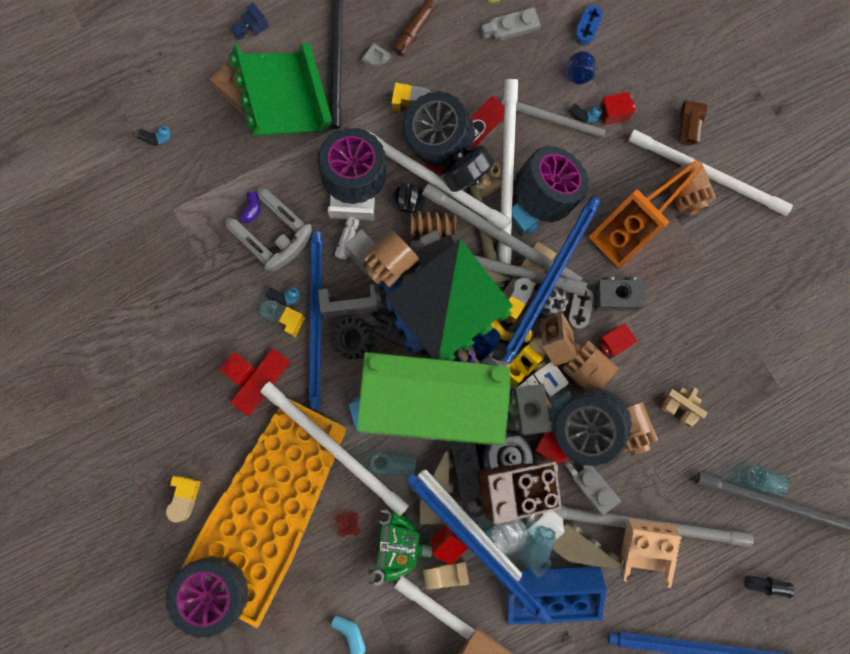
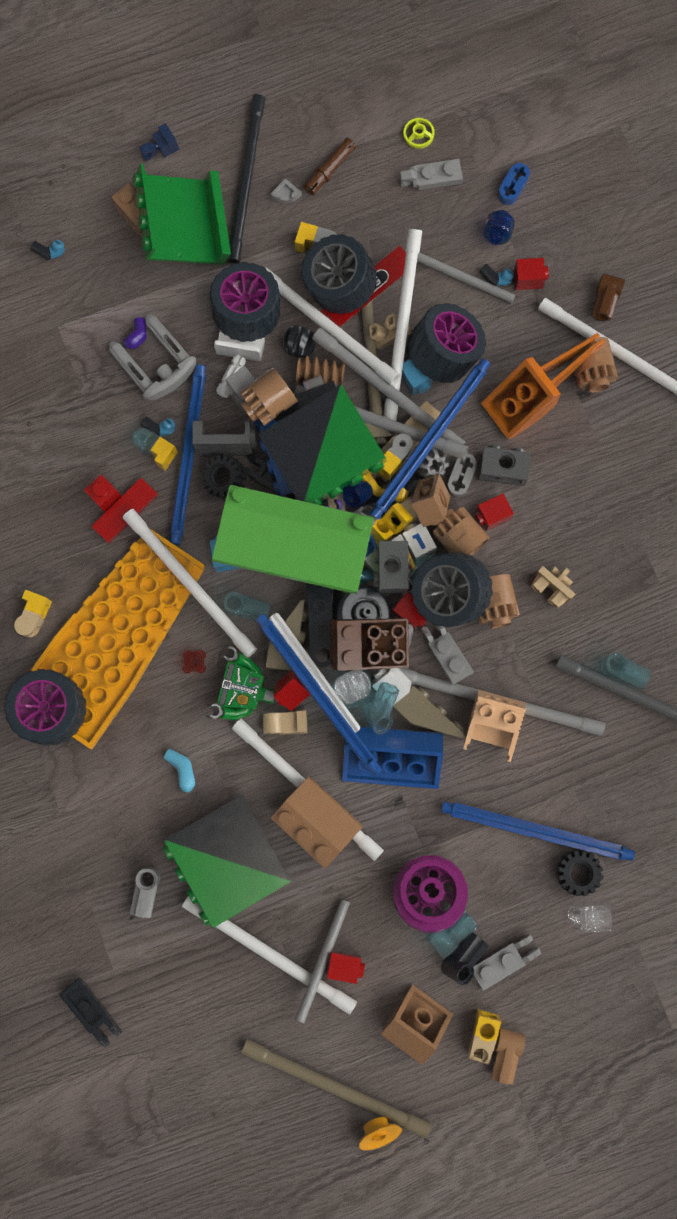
camera: 15 degrees right, 0 degrees up
(467, 168) = (362, 317): black wheel -> none
(769, 586) = (614, 777): black axle -> none

